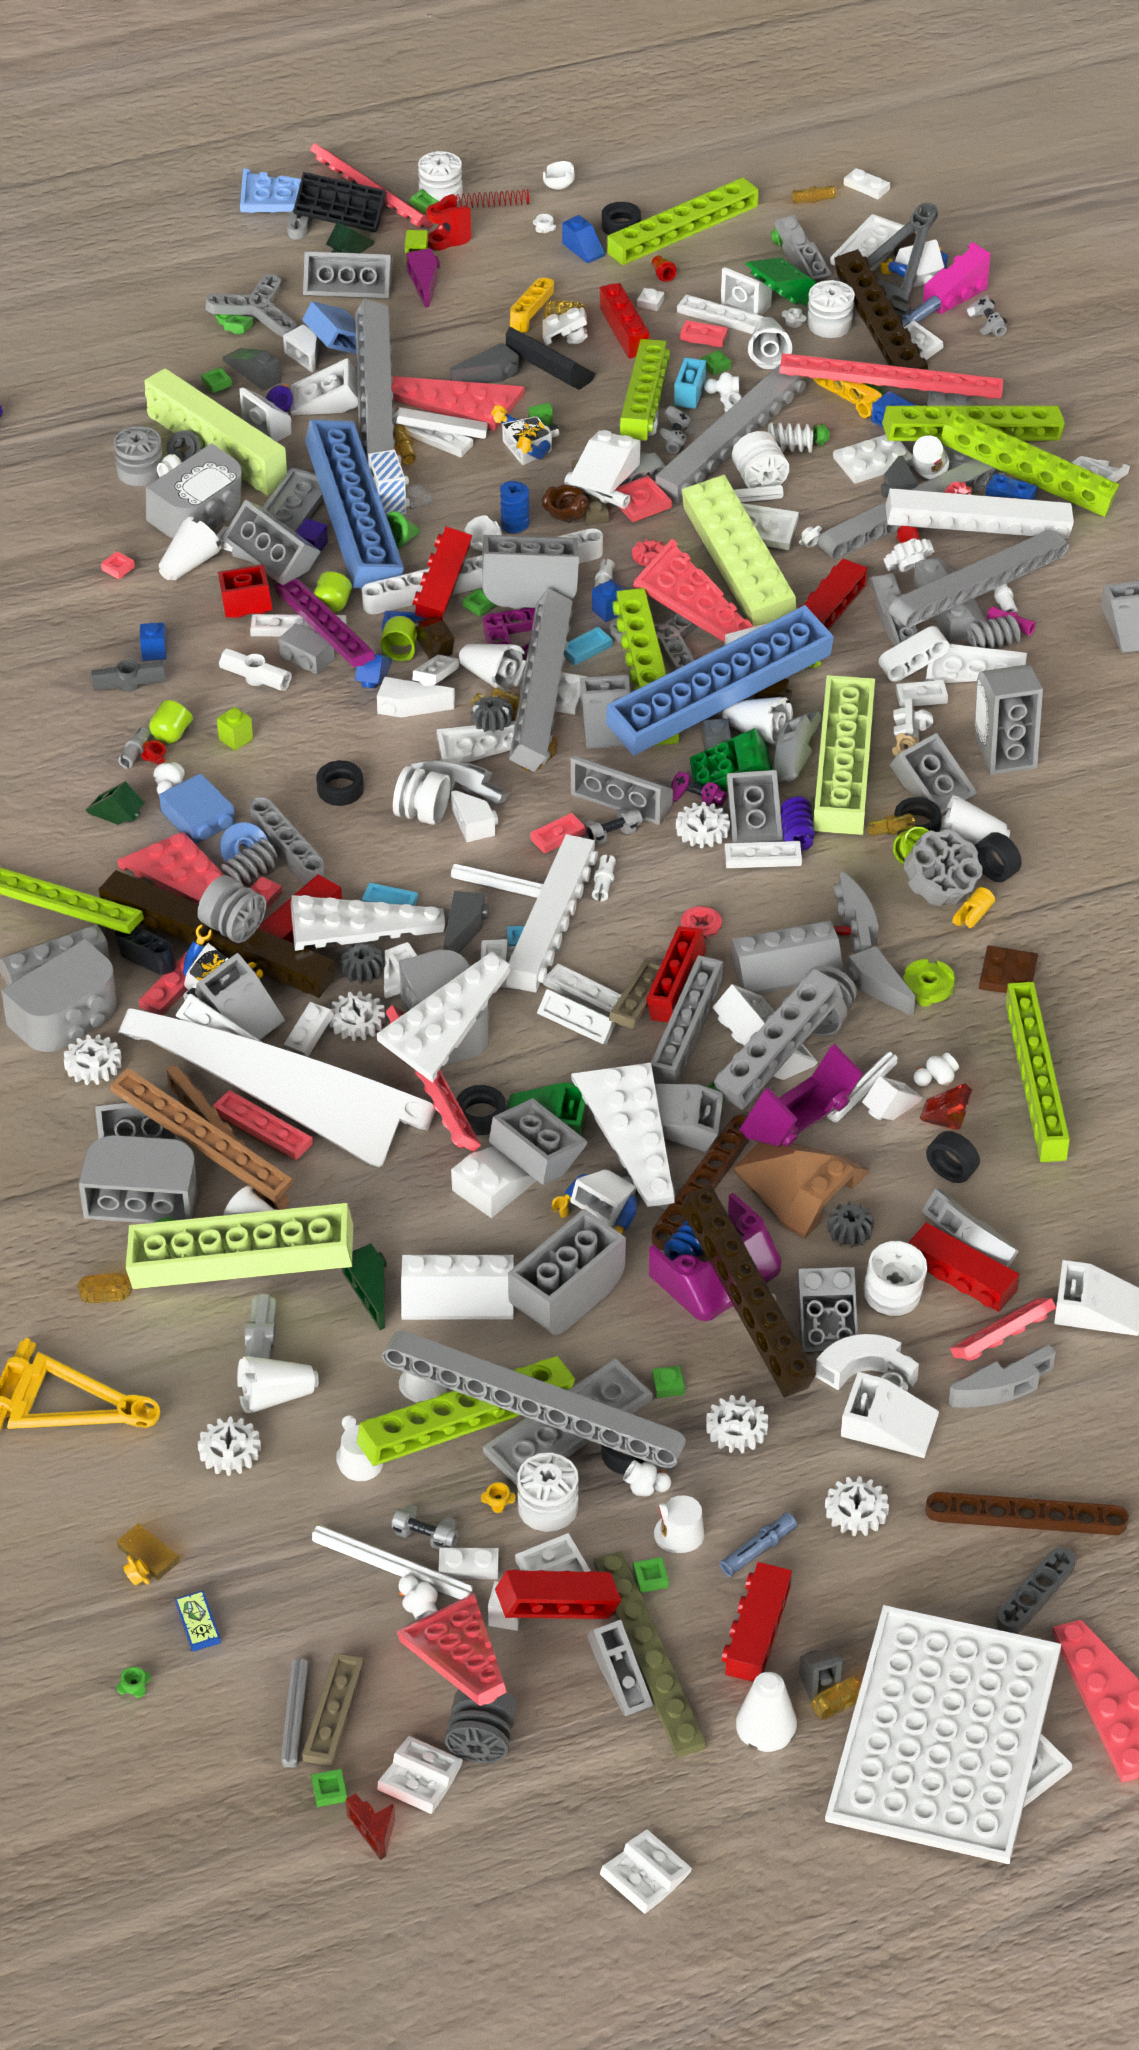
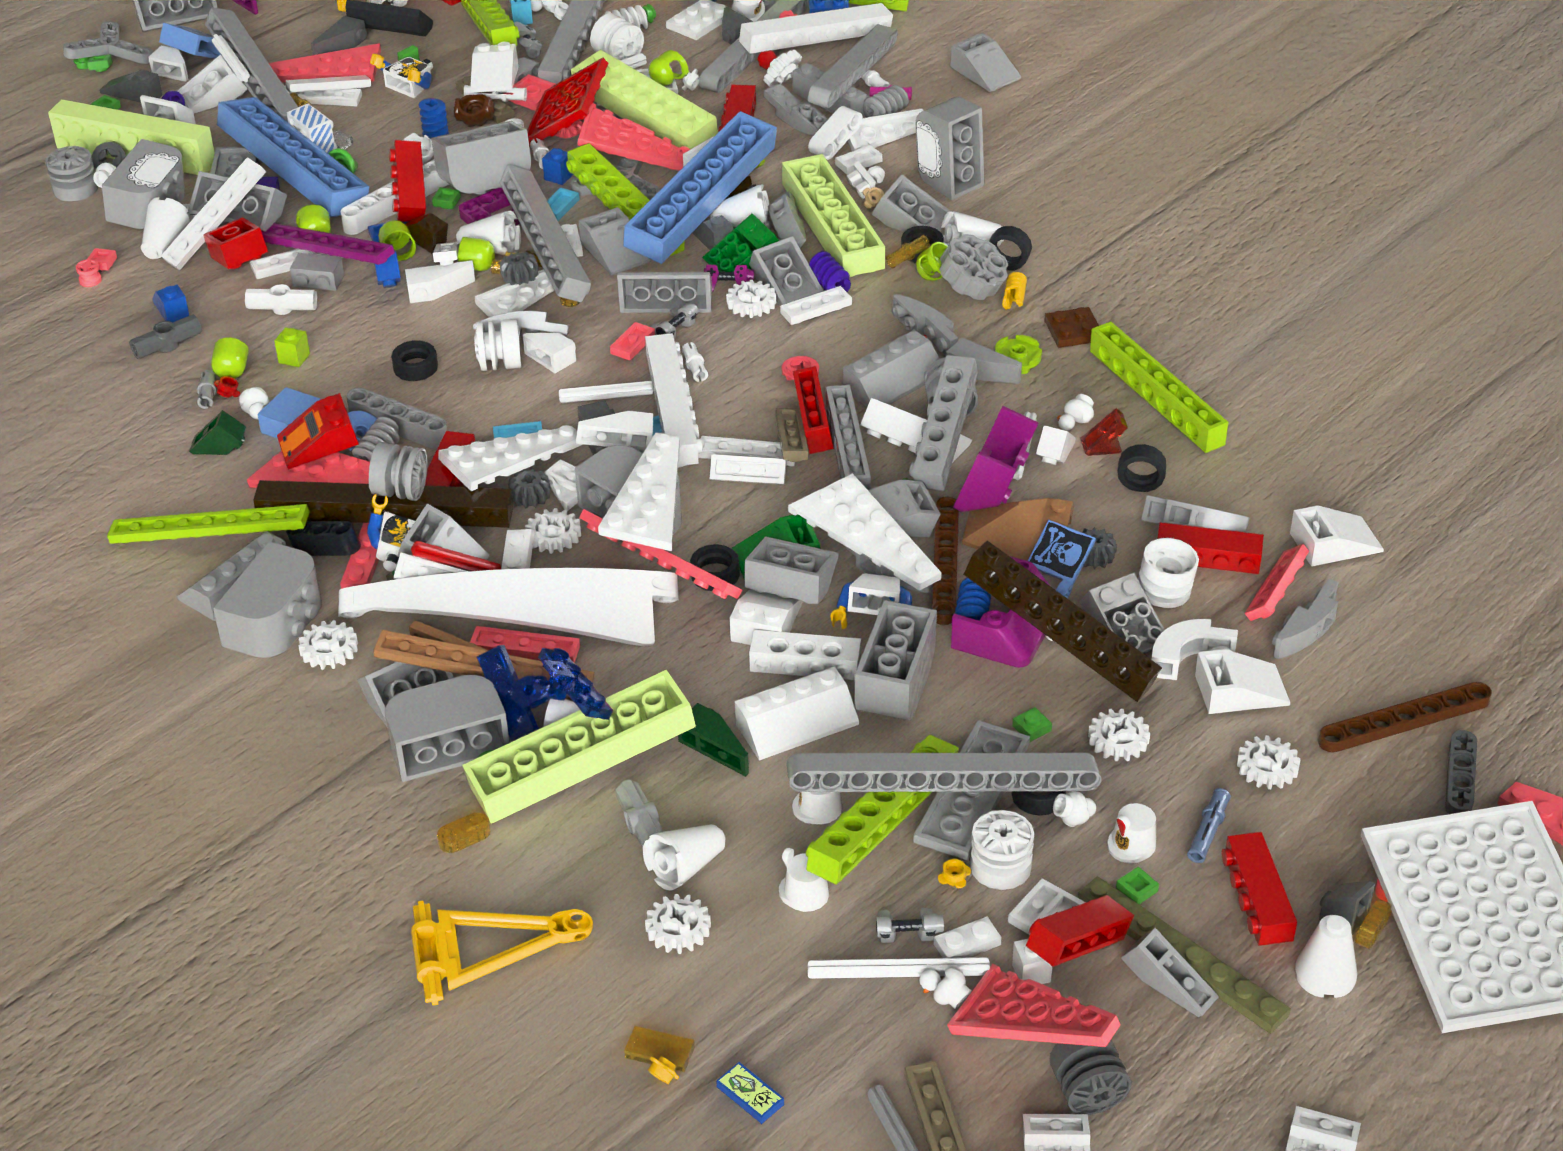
camera: 25 degrees left, 5 degrees down
(98, 577) = (88, 273): none -> coral wheel
(198, 836) = (317, 432): none -> red slope
(210, 1175) = (515, 694): none -> clear blue plate
(237, 551) = (213, 213): none -> white plate
(243, 1017) = (452, 558): none -> red axle
(254, 1181) = (568, 679): none -> clear blue plate
(355, 365) = (230, 58): none -> white axle
(465, 679) = (477, 250): none -> lime helmet
(470, 932) = (622, 428): none -> white slope
(496, 1226) = (803, 653): none -> white brick
(653, 528) = (566, 101): none -> red plate
(779, 518) = (660, 70): none -> lime helmet
(805, 1221) = (1061, 554): none -> flag

